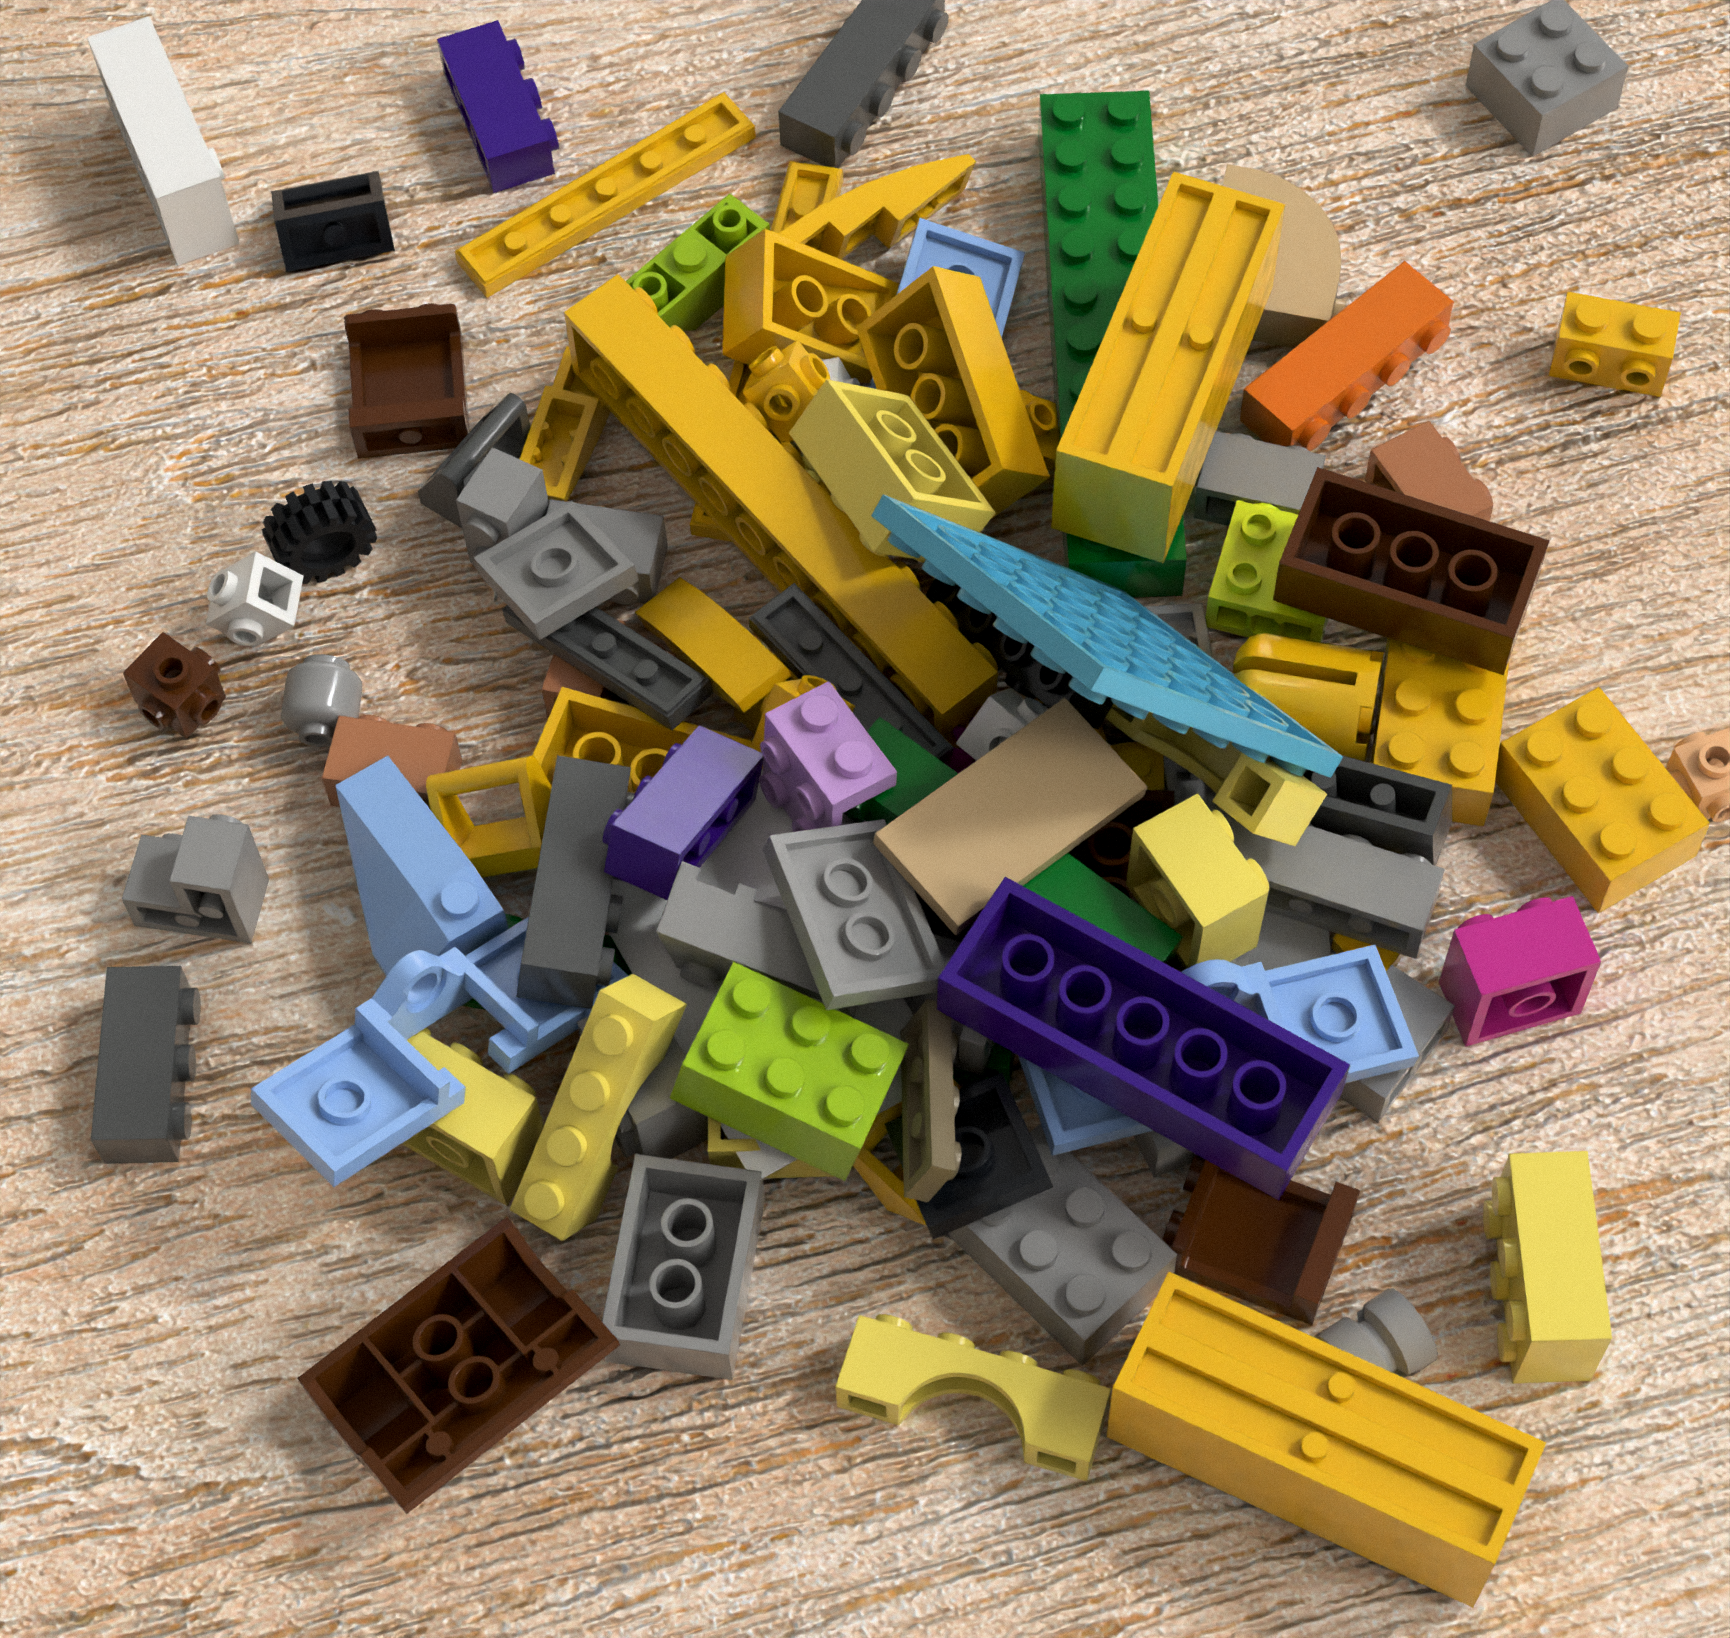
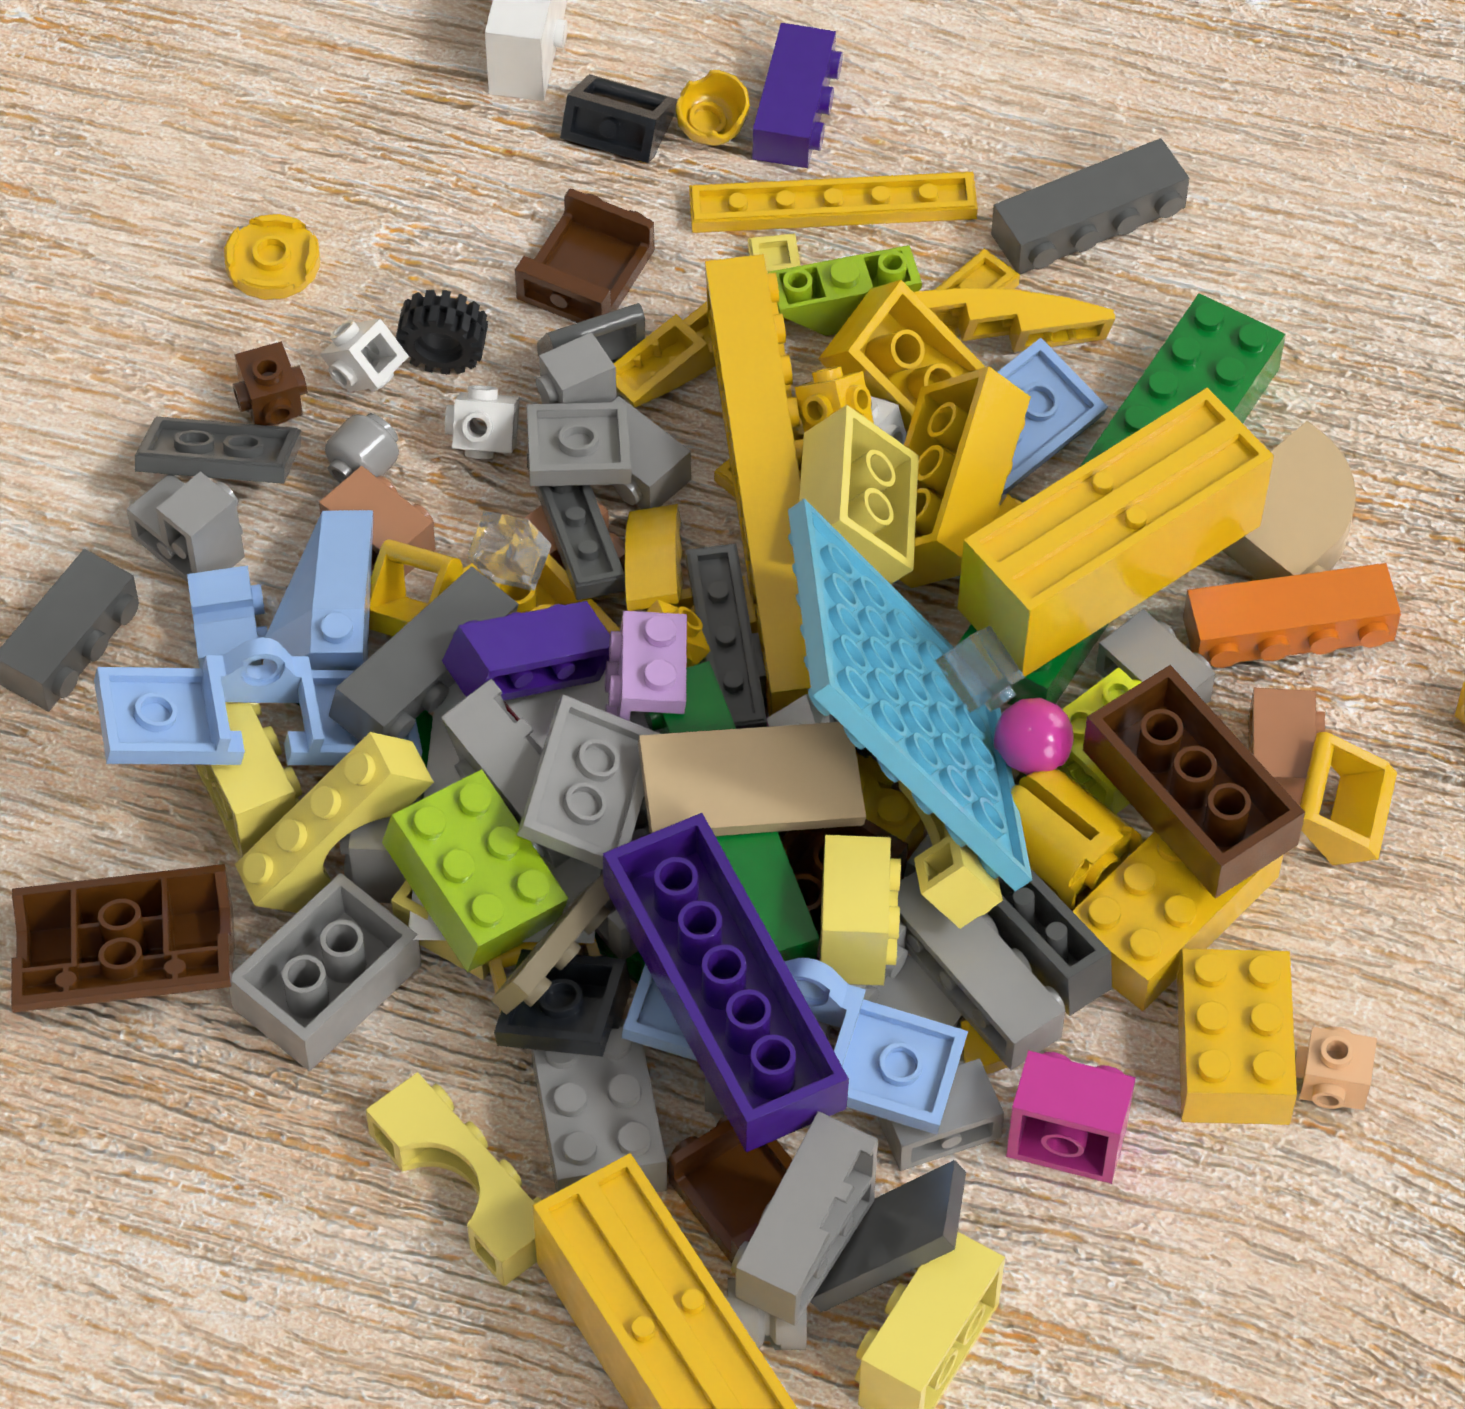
camera: 30 degrees right, 5 degrees down
(74, 551) = (272, 257): none -> yellow tile
(171, 783) = (218, 450): none -> dark grey tile
(308, 962) = (224, 610): none -> light blue brick
(426, 160) = (713, 108): none -> yellow hair
(446, 605) = (497, 411): none -> white brick
(577, 717) = (509, 550): none -> clear brick
(585, 274) = (778, 251): none -> light yellow tile
(1129, 576) = (981, 671): none -> clear brick
(1221, 613) = (1034, 736): none -> dark pink hair
(1373, 1232) = (808, 1219): none -> light grey wedge
(1449, 1197) = (897, 1235): none -> dark grey tile
(1530, 497) = (1359, 804): none -> yellow tile

